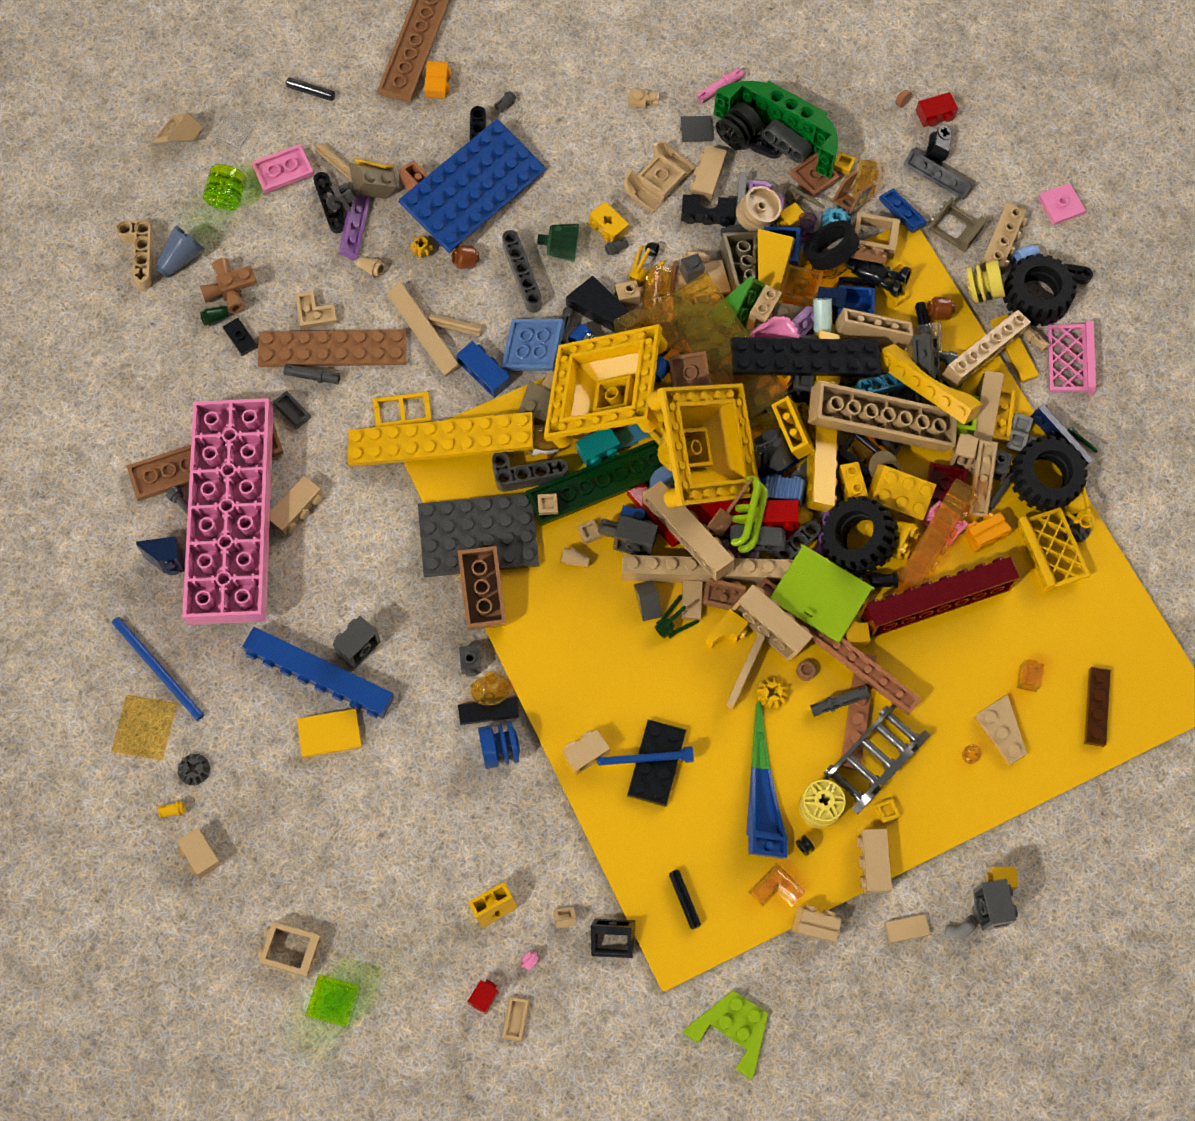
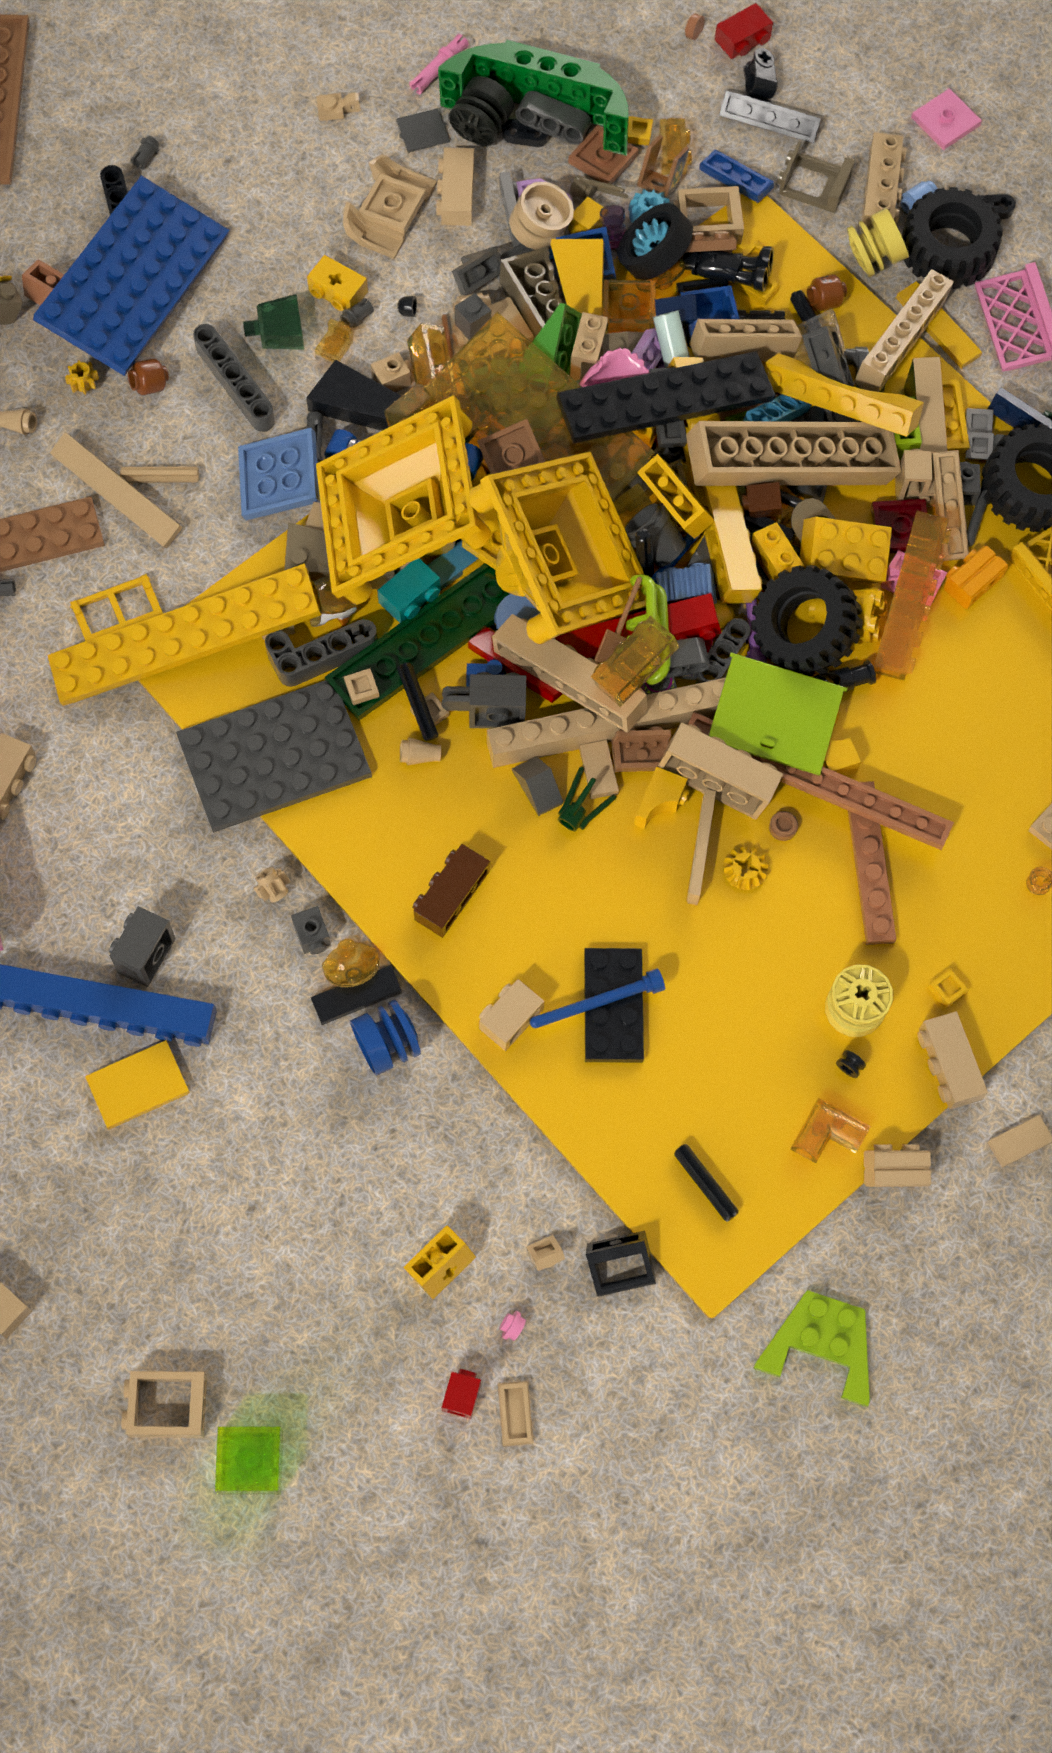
camera: 15 degrees left, 0 degrees up
(436, 79) = (39, 143): light orange brick -> none
(452, 622) = (271, 884): none -> tan gear
(481, 588) = (301, 825): medium nougat brick -> none
(483, 369) = (217, 524): blue brick -> none
(569, 657) = (451, 890): none -> reddish brown brick
(582, 523) = (417, 701): none -> black axle
(597, 262) = (335, 341): none -> clear yellow bracket
(638, 272) = (398, 341): yellow plant -> none
(694, 212) = (453, 242): black arch -> none
(705, 235) = (477, 270): none -> dark grey slope
(731, 535) = (634, 661): none -> clear yellow brick
(764, 819) = (784, 1042): blue plate -> none
(828, 241) = (648, 235): none -> medium azure gear
(836, 702) = (839, 856): dark grey pin -> none
(853, 444) = (763, 500): none -> reddish brown brick
(890, 313) = (762, 314): none -> black axle
(890, 764) = (939, 922): dark grey fence -> none
(940, 596) = (938, 678): dark red brick -> none
(1033, 337) = (965, 306): tan pin -> none

